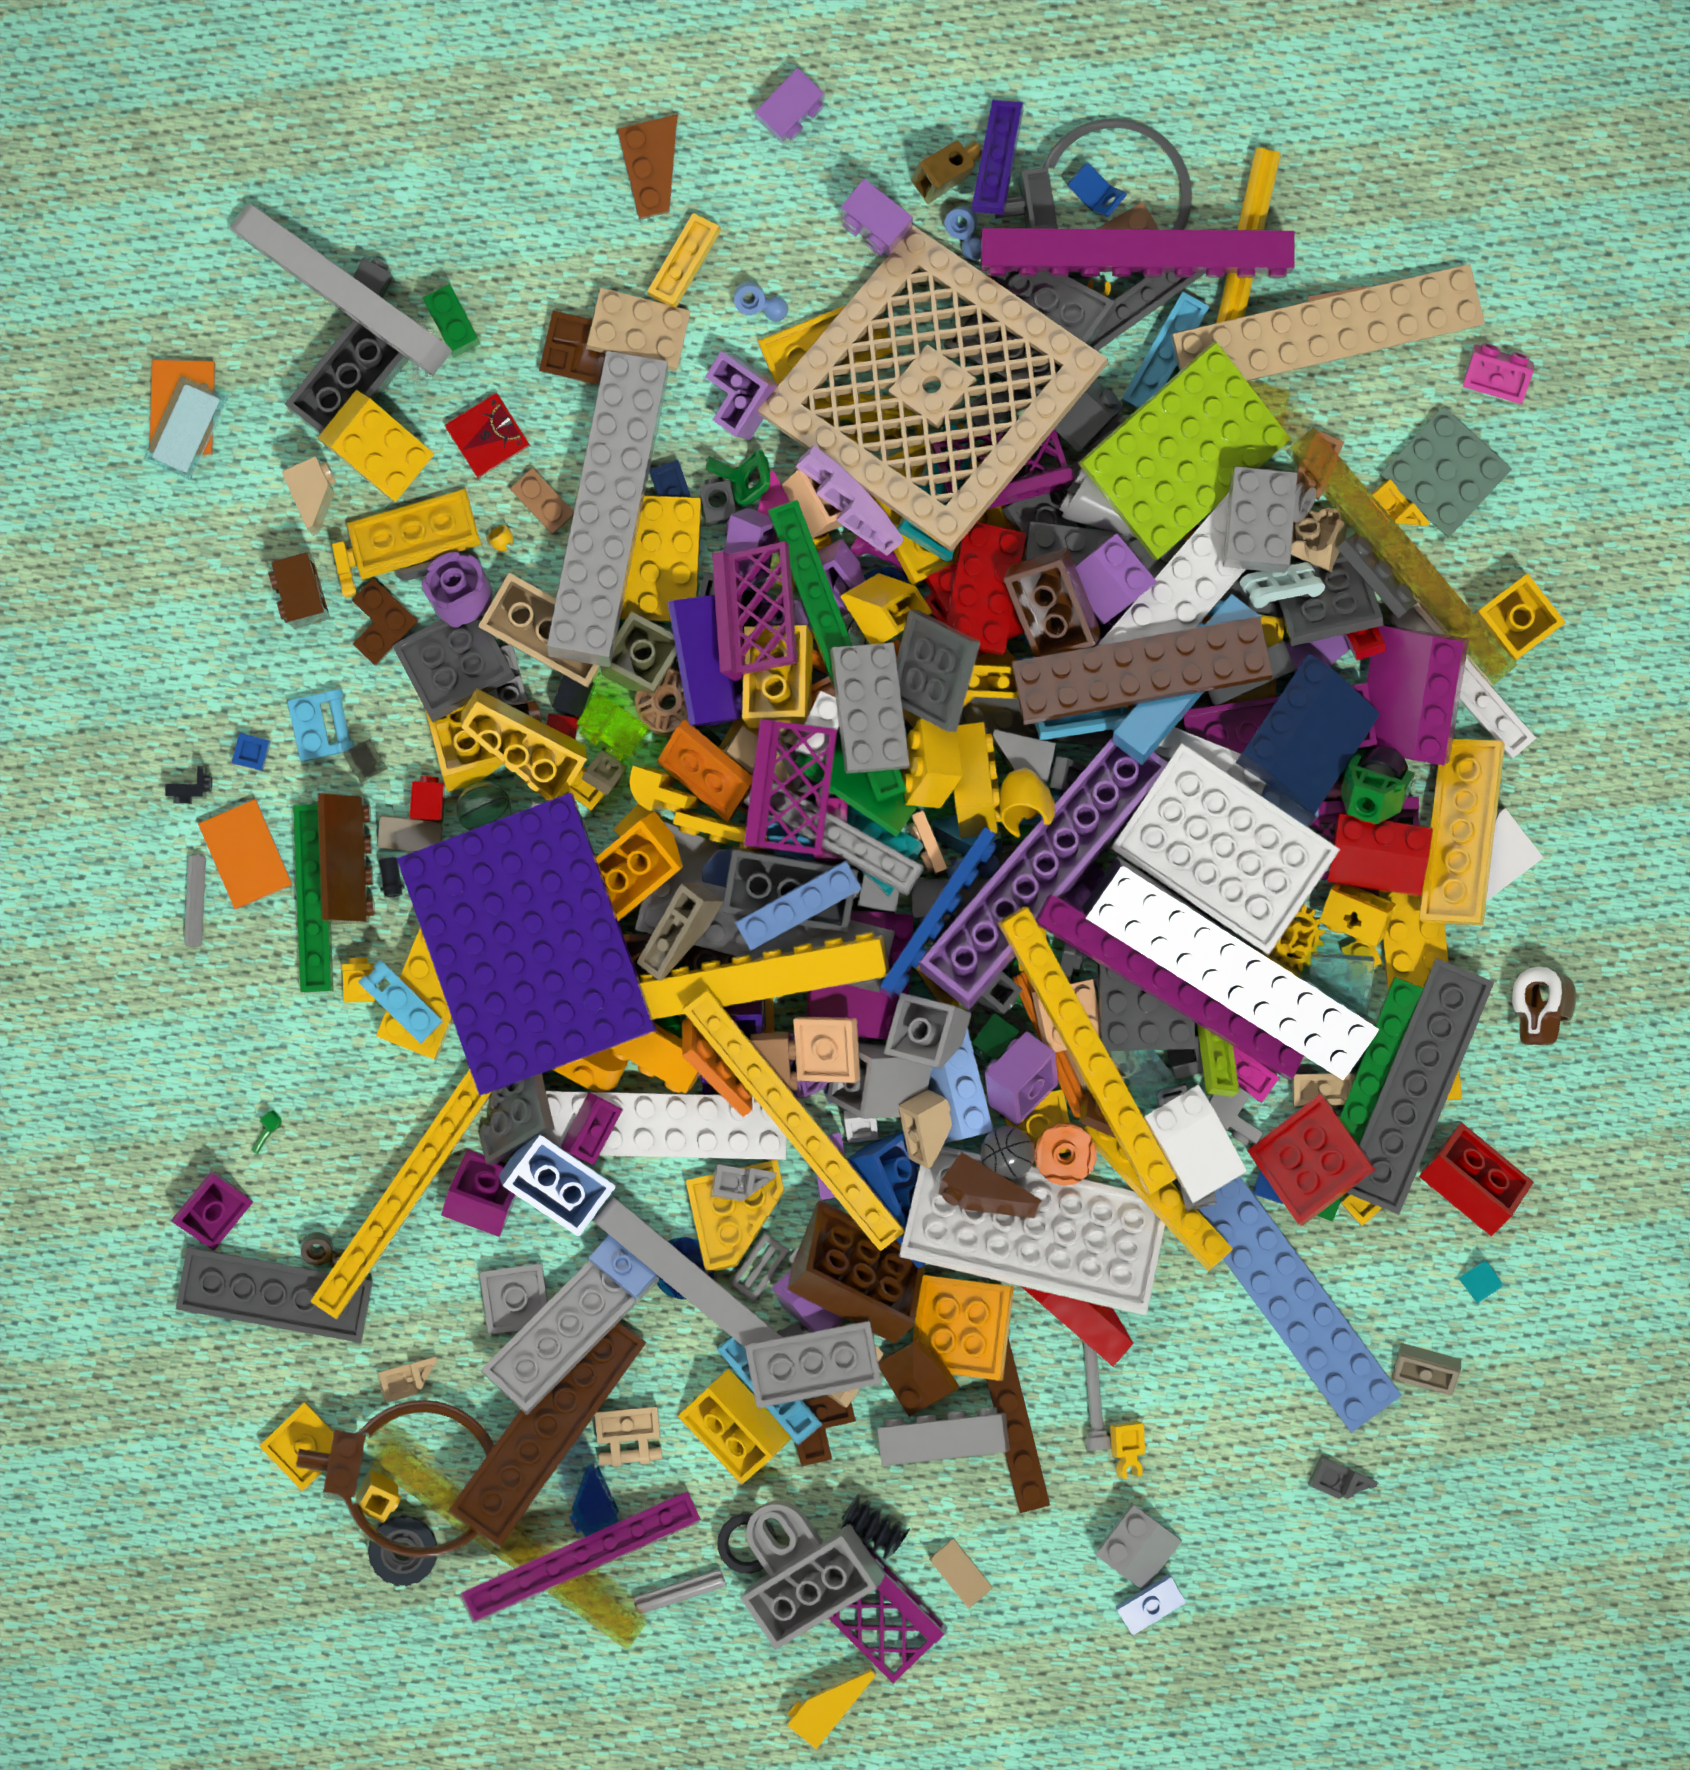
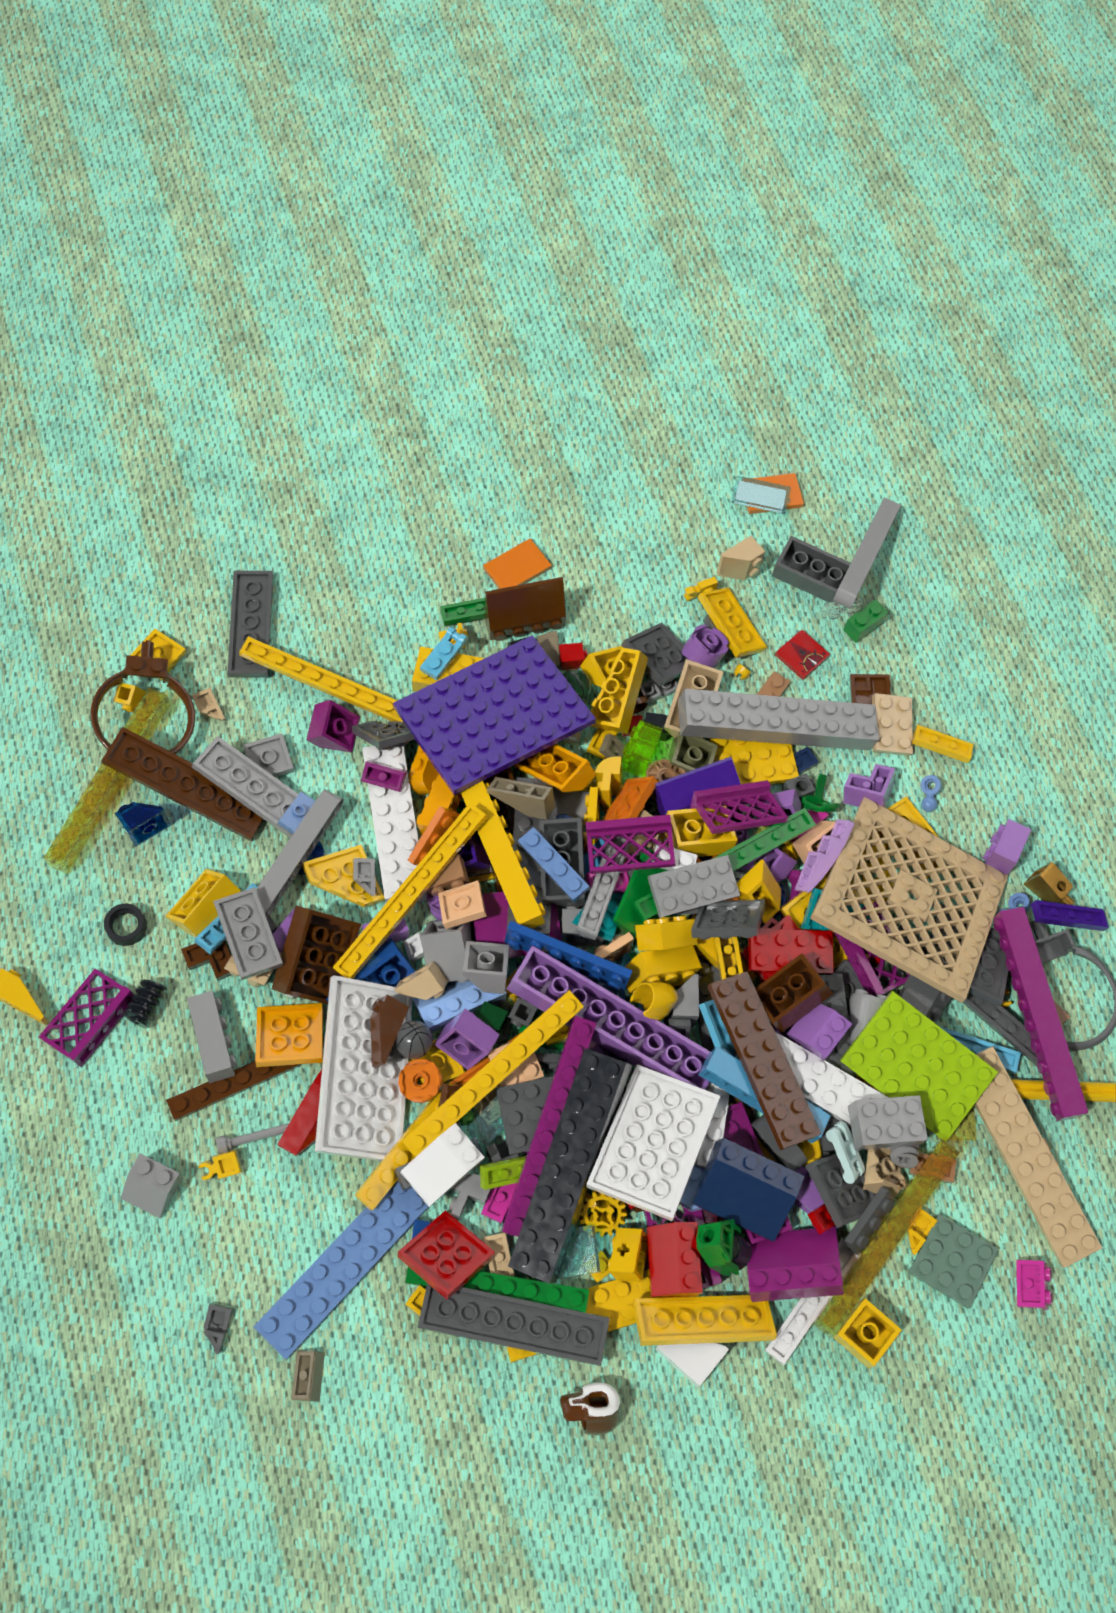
camera: 70 degrees right, 20 degrees down
(186, 792) = (551, 535): black bracket -> none
(195, 900) = (484, 544): light grey axle -> none
(212, 1210) = (298, 579): magenta slope -> none
(251, 752) = (579, 558): blue plate -> none
(271, 1122) = (355, 606): green hand -> none
(299, 590) = (682, 563): reddish brown brick -> none
(311, 729) = (603, 588): medium azure plate -> none
(320, 1255) = (282, 640): dark brown plate -> none
(365, 760) = (588, 618): clear smoke brick -> none
(374, 276) = (877, 576): dark grey brick -> none
(375, 446) = (779, 587): yellow brick -> none
(390, 622) = (674, 620): reddish brown plate -> none
(398, 1570) = (109, 723): black wheel -> none
(556, 1183) = (344, 761): medium blue slope -> none
(579, 1557) = (102, 816): magenta plate -> none
(625, 1426) = (194, 836): tan plate -> none
(650, 162) = (993, 716): dark orange wing -> none
(679, 1591) = (88, 889): light grey axle -> none
(774, 1245) = (292, 901): light grey tile -> none
(790, 106) = (1057, 788): medium lavender brick -> none
(807, 1576) = (106, 961): light grey brick -> none
(917, 1377) = (251, 1011): reddish brown plate -> none
(960, 1573) = (119, 1067): tan slope -> none
(1095, 190) = (1068, 982): blue bracket -> none
(1150, 1604) = (110, 1203): plate -> none
(1476, 1179) = (454, 1384): red slope -> none
(1481, 1281) = (379, 1404): teal slope -> none

